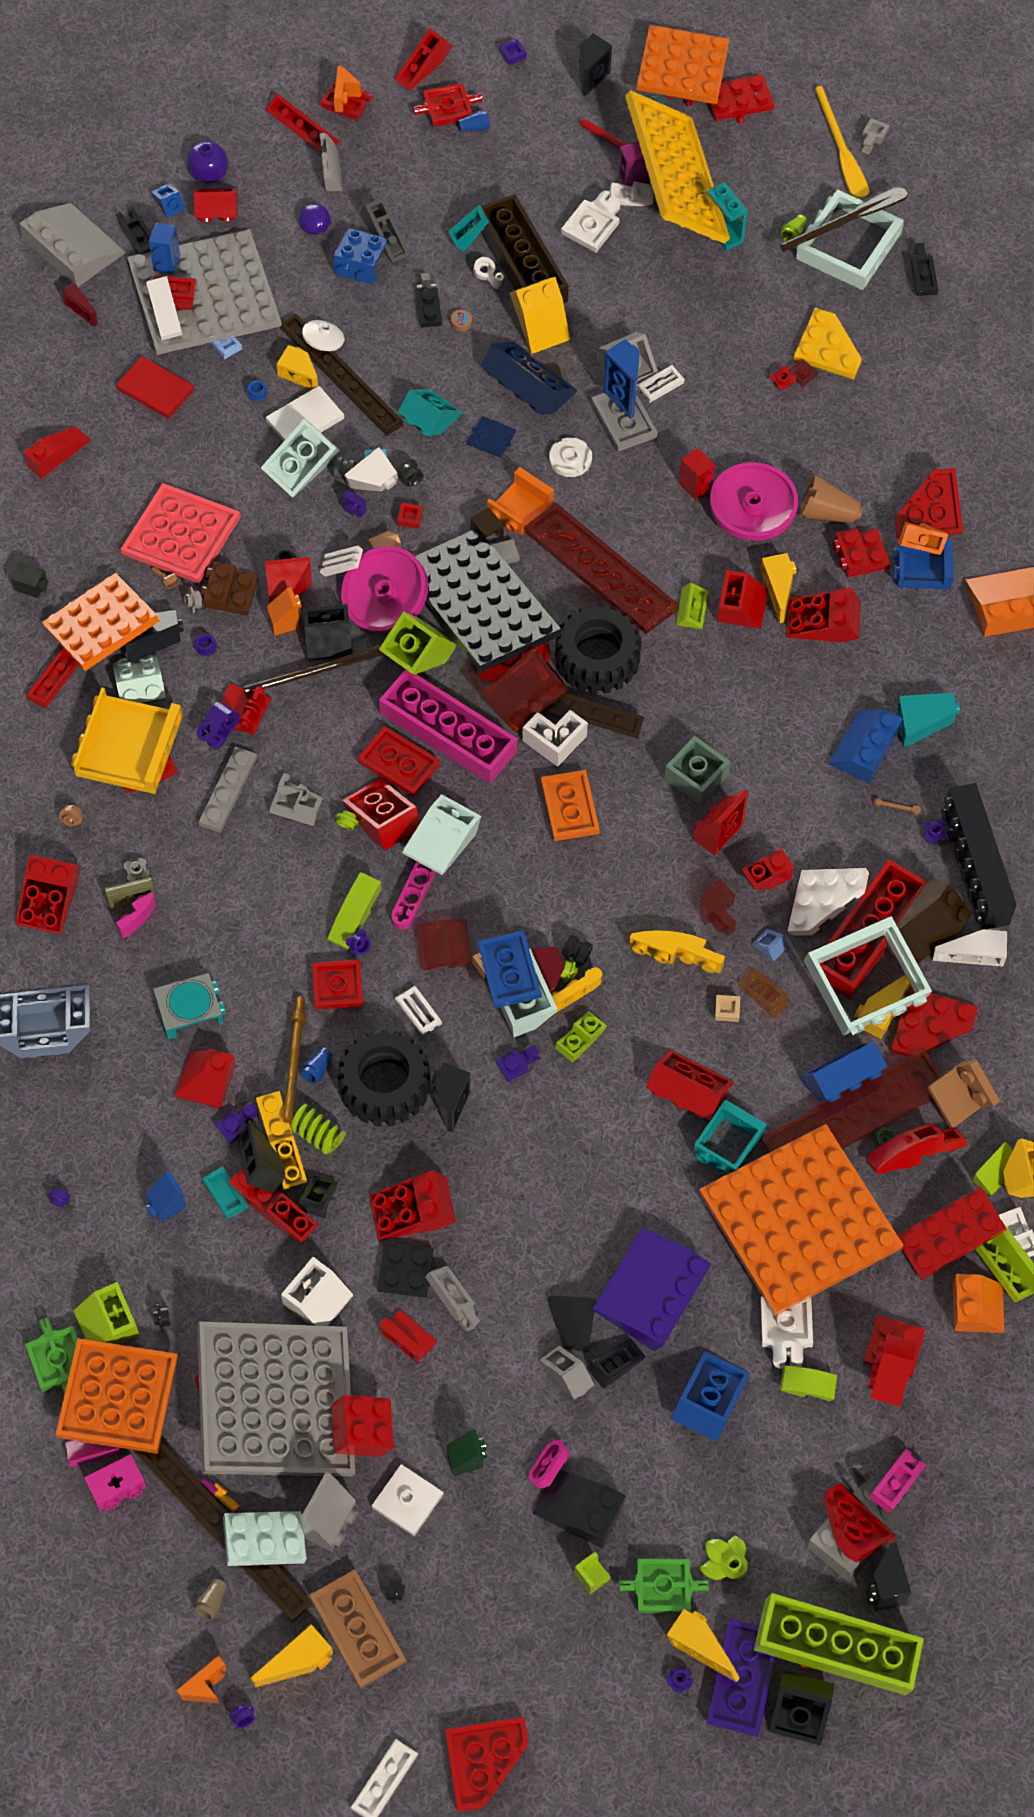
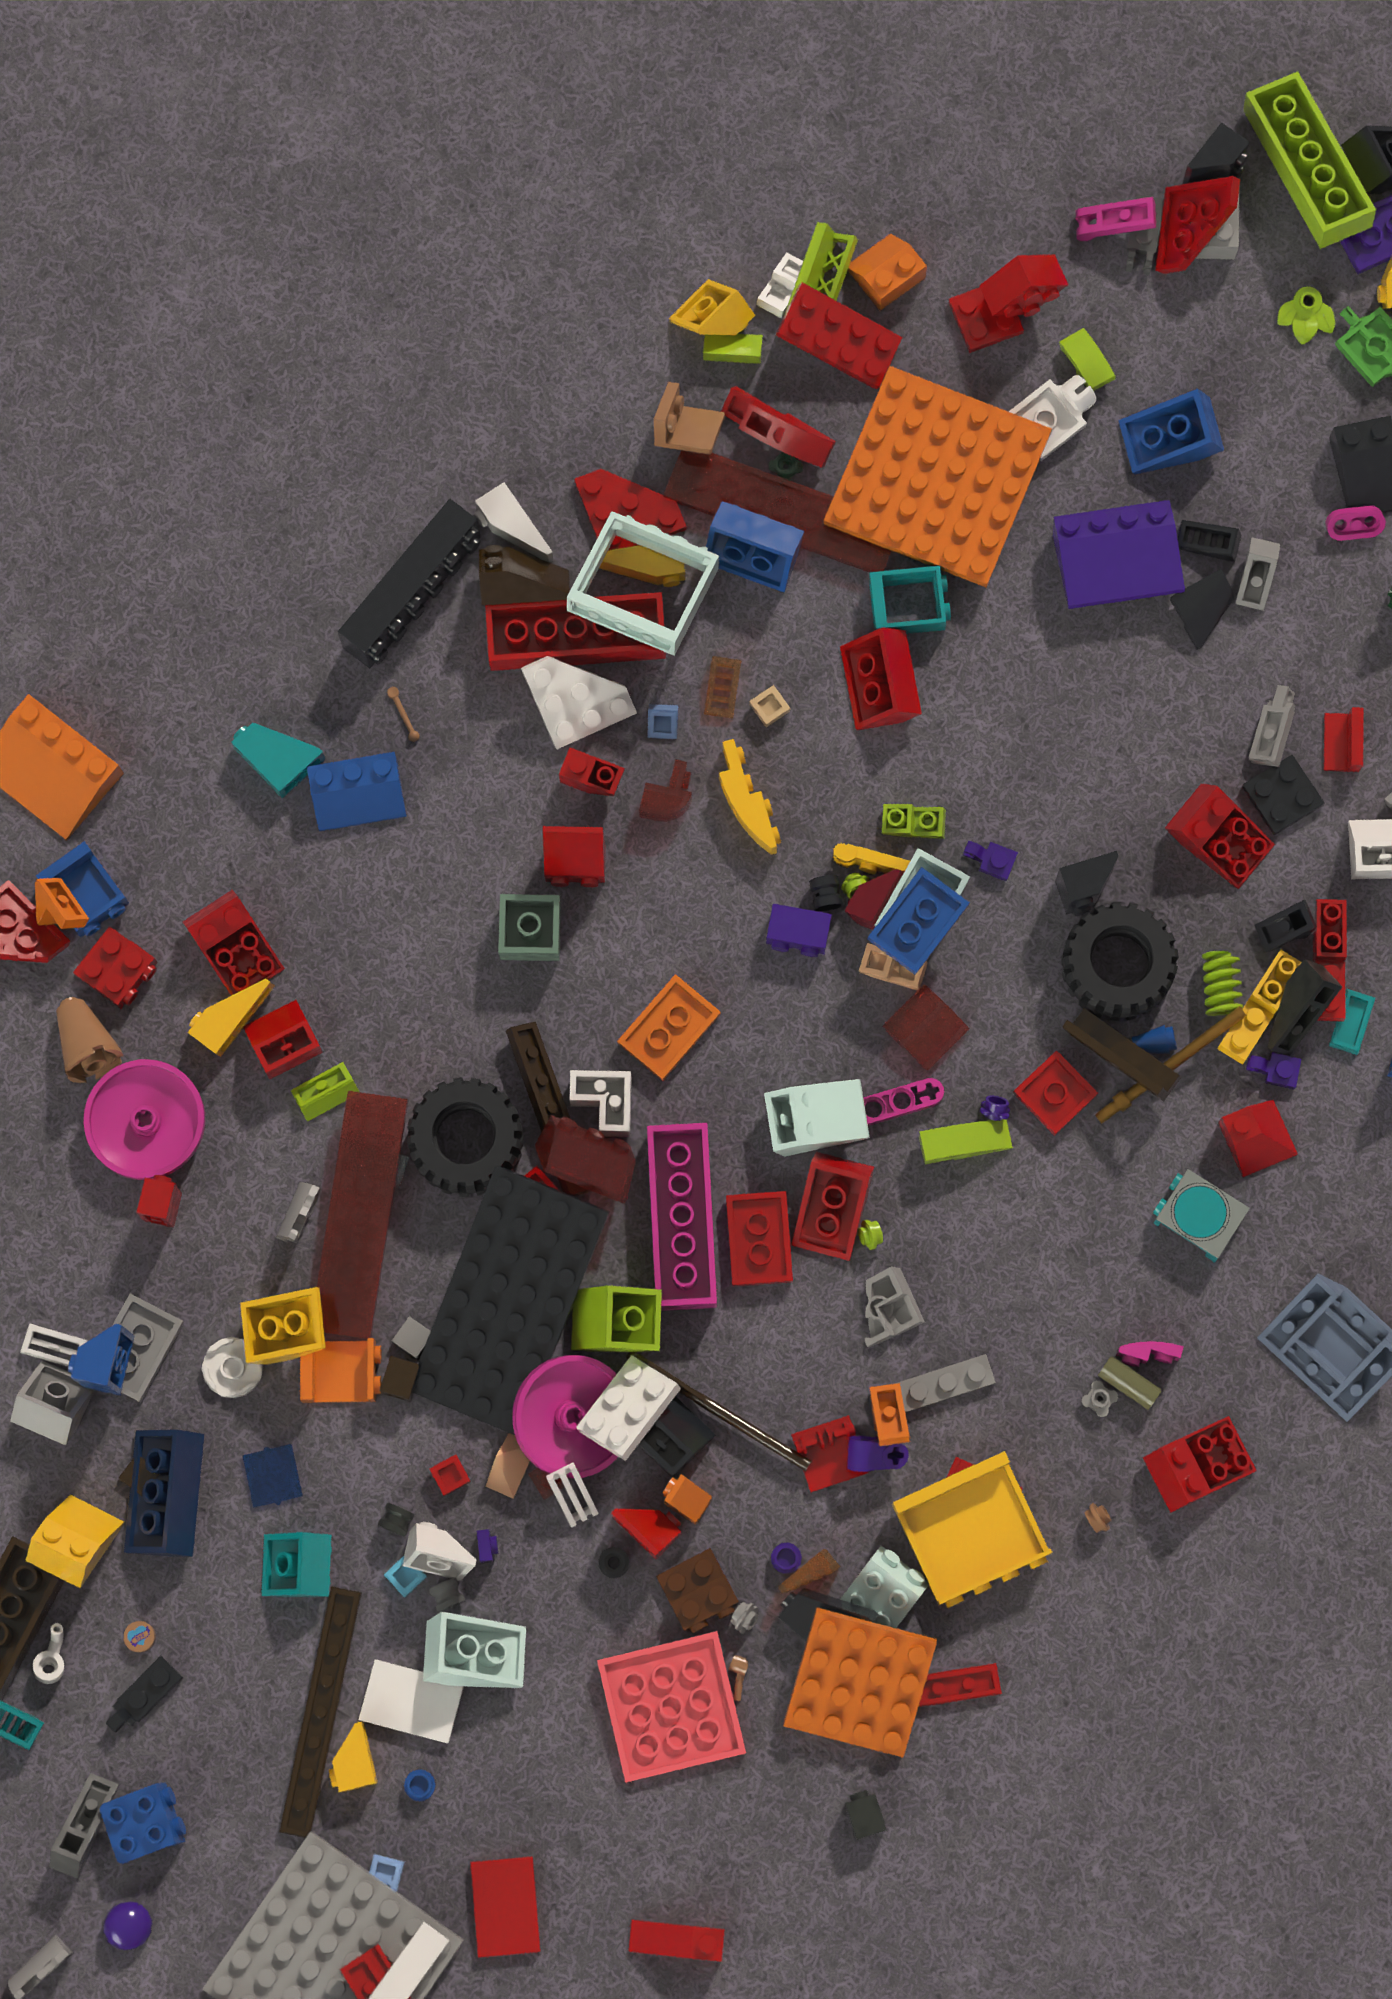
camera: 125 degrees left, 15 degrees up
(184, 652) = (816, 1568): none -> clear orange slope
(231, 742) = (889, 1414): none -> orange slope
(323, 335) = (297, 1778): white dish -> none
(323, 1034) = (1123, 1054): none -> dark brown fence
(361, 613) = (628, 1408): none -> white plate
(428, 1026) = (1008, 1020): white tile -> none
(570, 478) = (282, 1326): none -> yellow slope
(571, 912) = (798, 929): none -> dark purple piece
(631, 545) = (298, 1211): none -> light grey slope
(932, 837) = (406, 663): dark purple plate -> none

